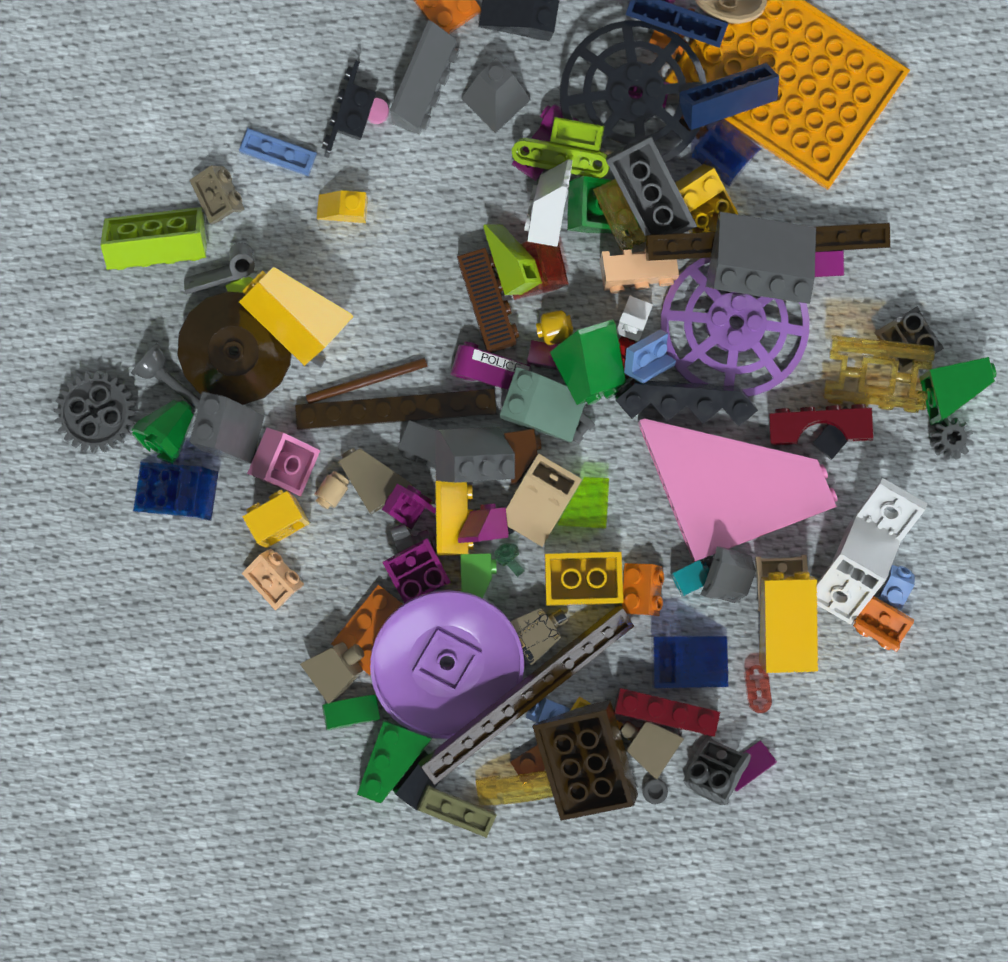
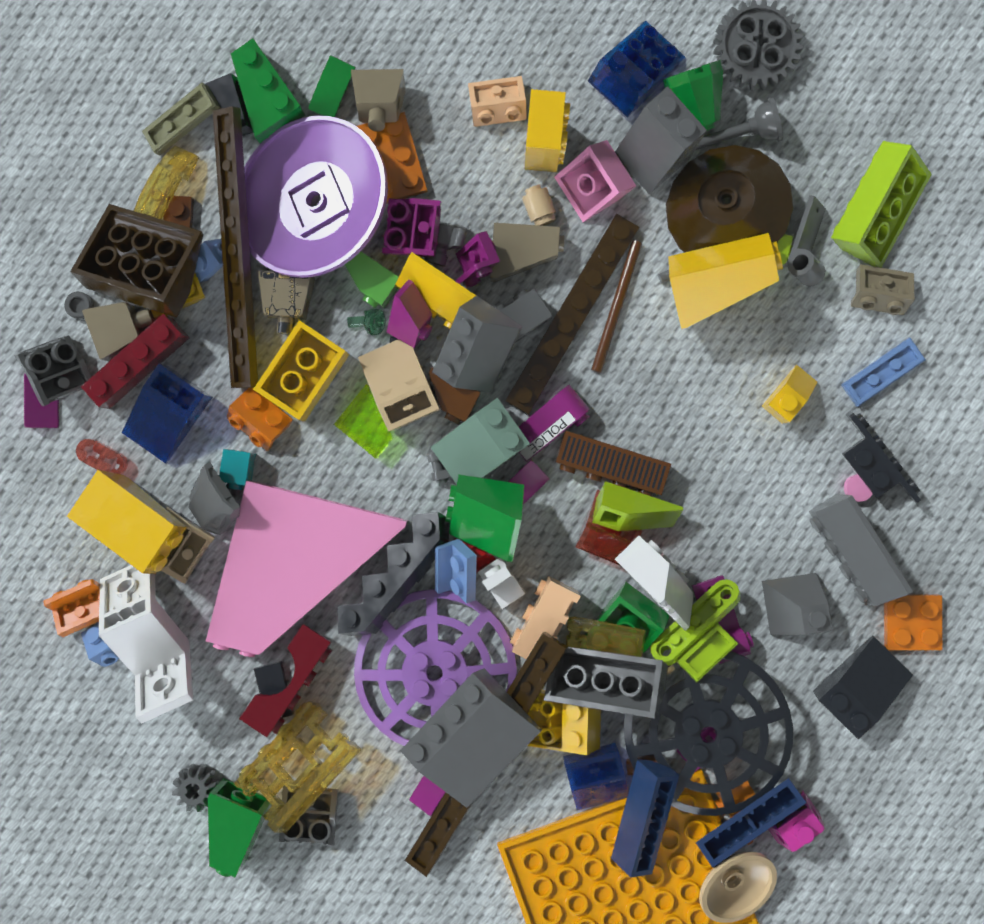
camera: 120 degrees right, 5 degrees up
(554, 327) = (545, 507): yellow head -> none

